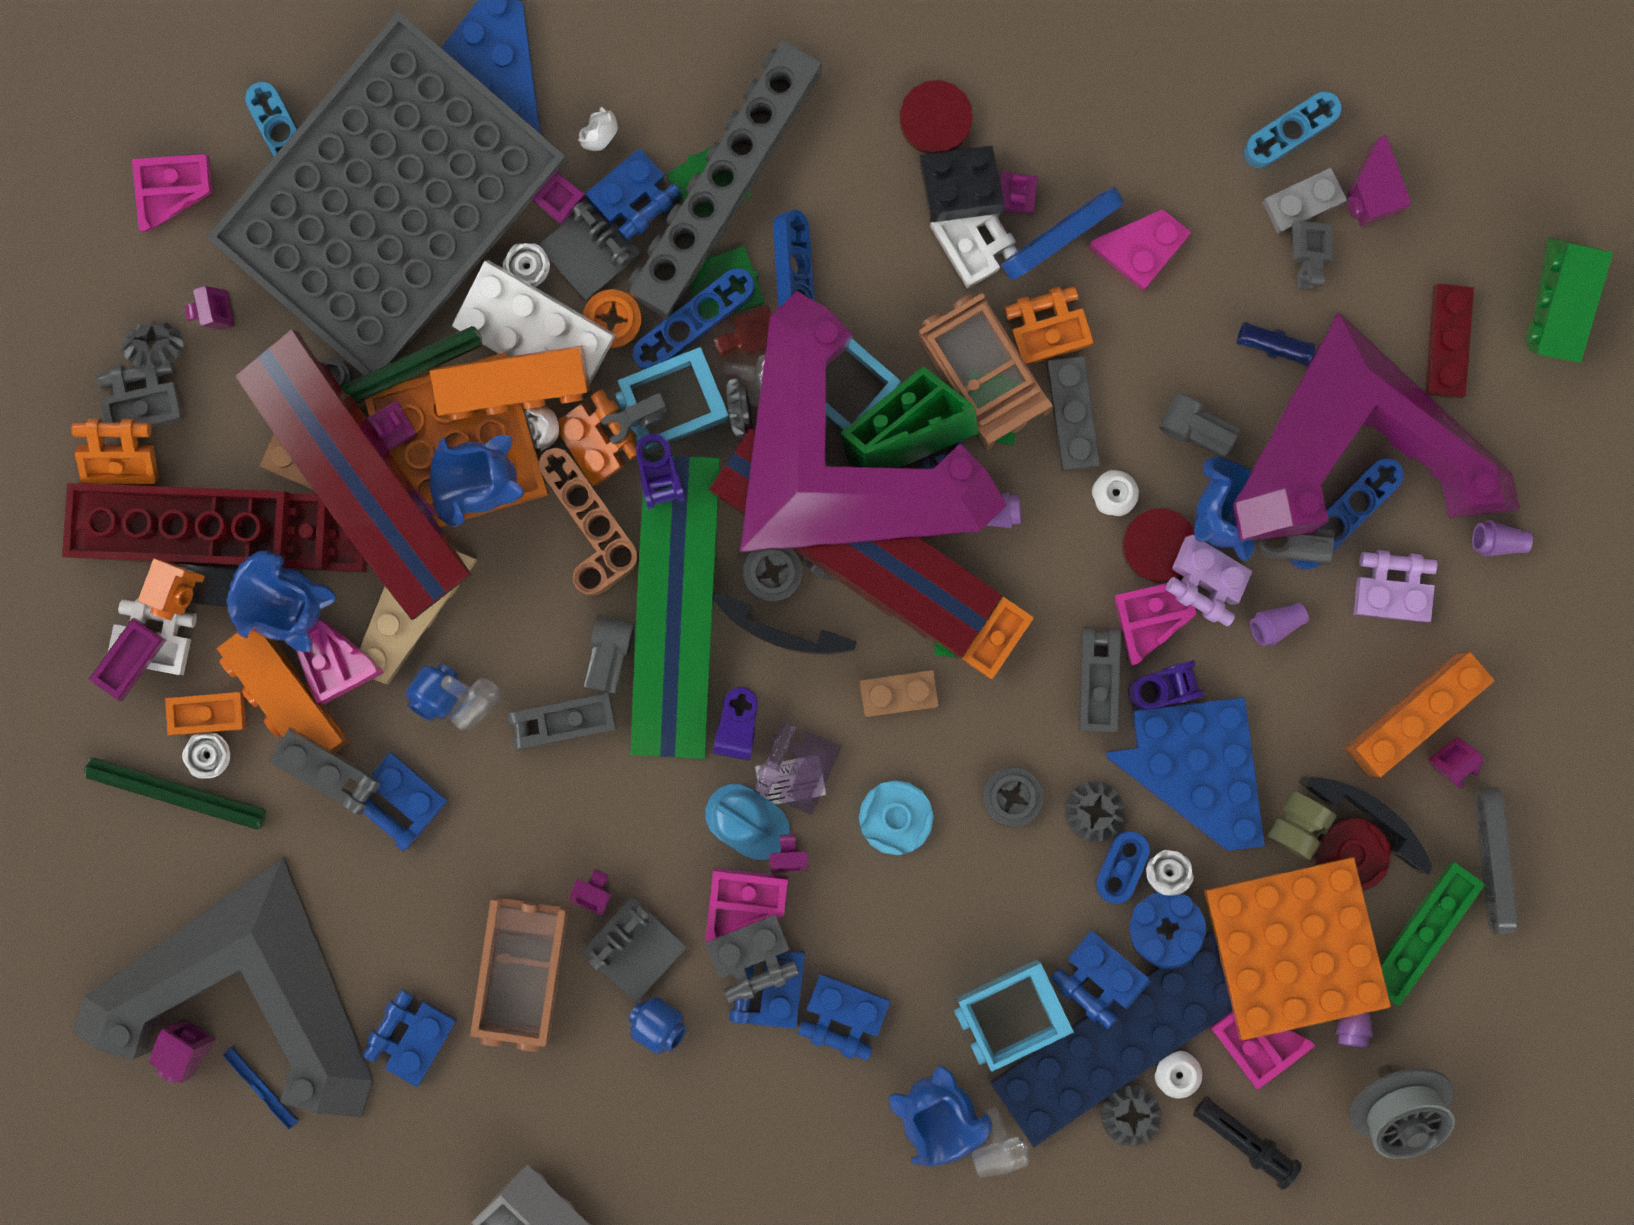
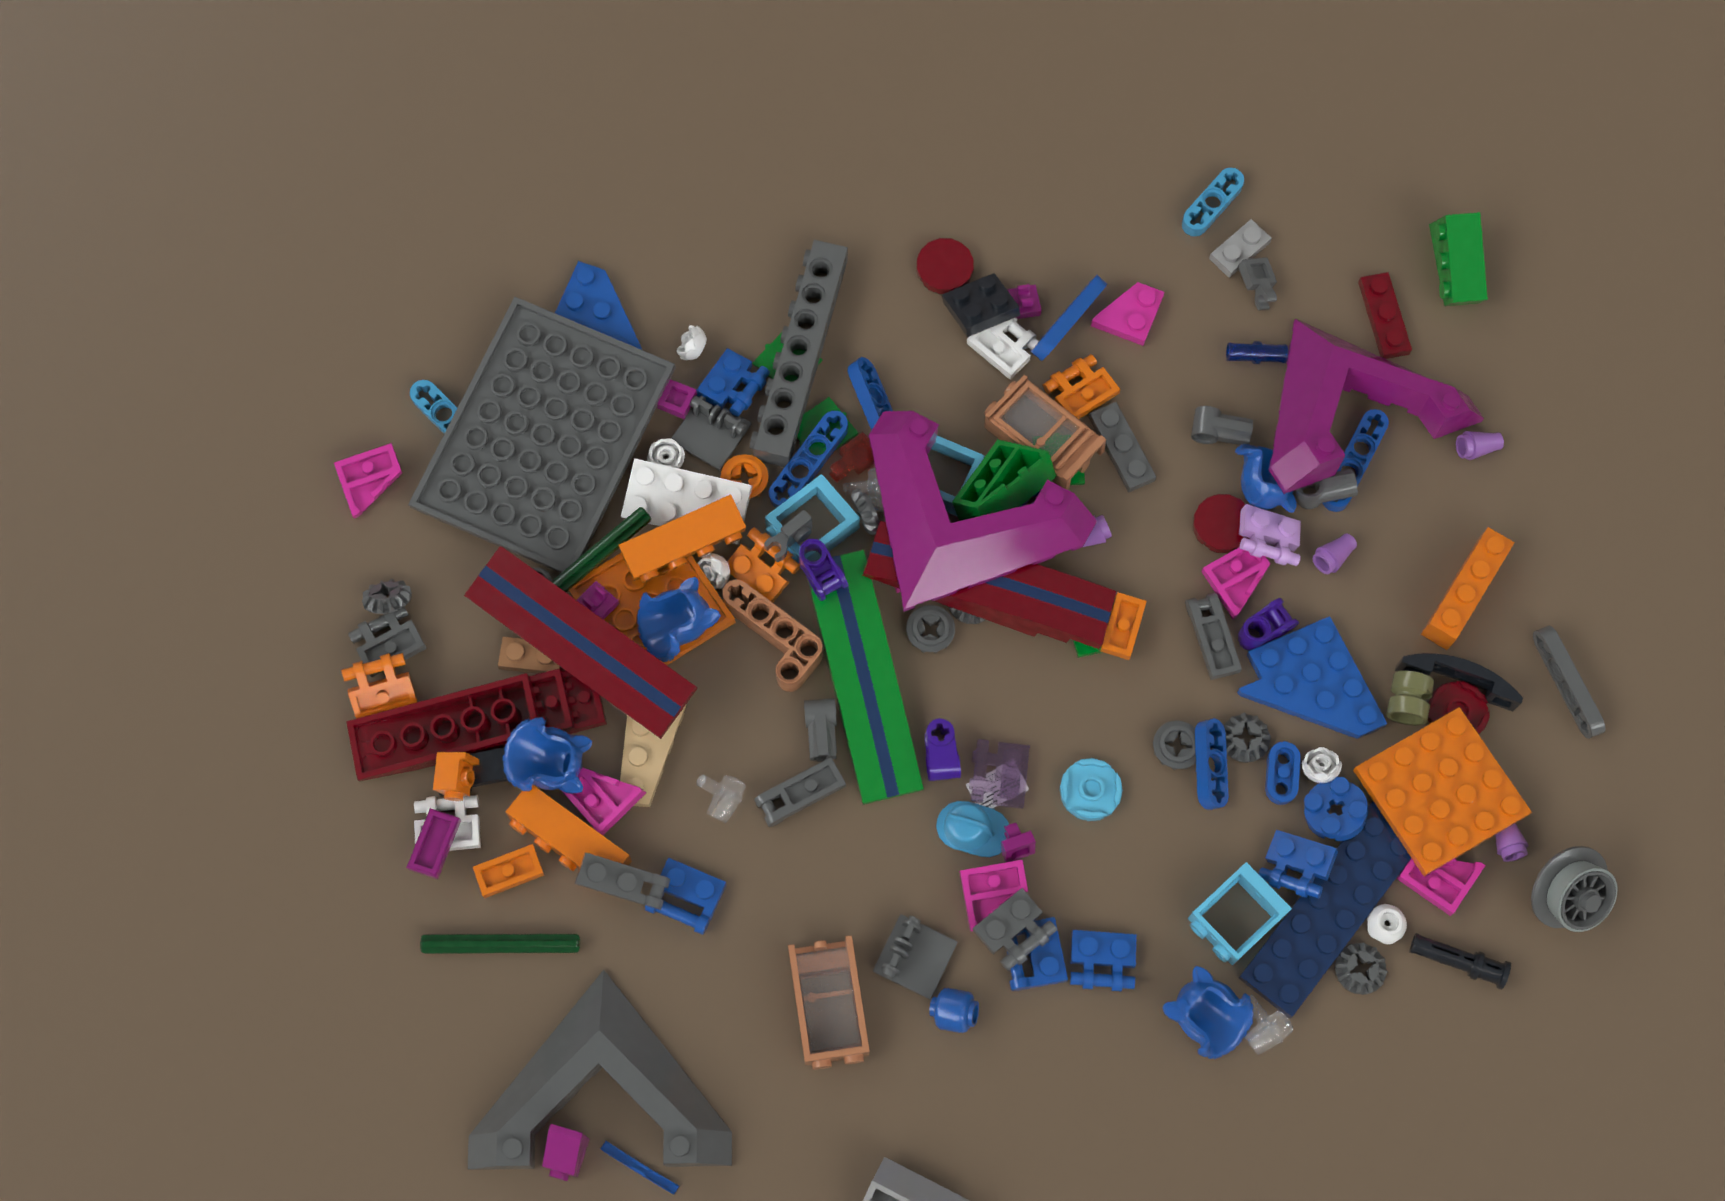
camera: 15 degrees left, 15 degrees down
(195, 751) = (515, 894): white plate -> none
(211, 308) = (425, 557): magenta tile -> none
(420, 1043) = (762, 1087): blue plate -> none
(426, 694) = (688, 799): blue head -> none
(591, 894) = (867, 921): magenta tile -> none
(738, 612) = (993, 669): black slope -> none
(899, 693) = (1060, 693): medium nougat plate -> none
(1049, 846) = (1205, 785): none -> blue beam
(1103, 493) = (1173, 503): white plate -> none
(1378, 186) = (1291, 222): magenta slope -> none
(1395, 599) = (1416, 511): lavender plate -> none
(1428, 930) = (1538, 748): green plate -> none
(1457, 761) = (1509, 616): magenta tile -> none

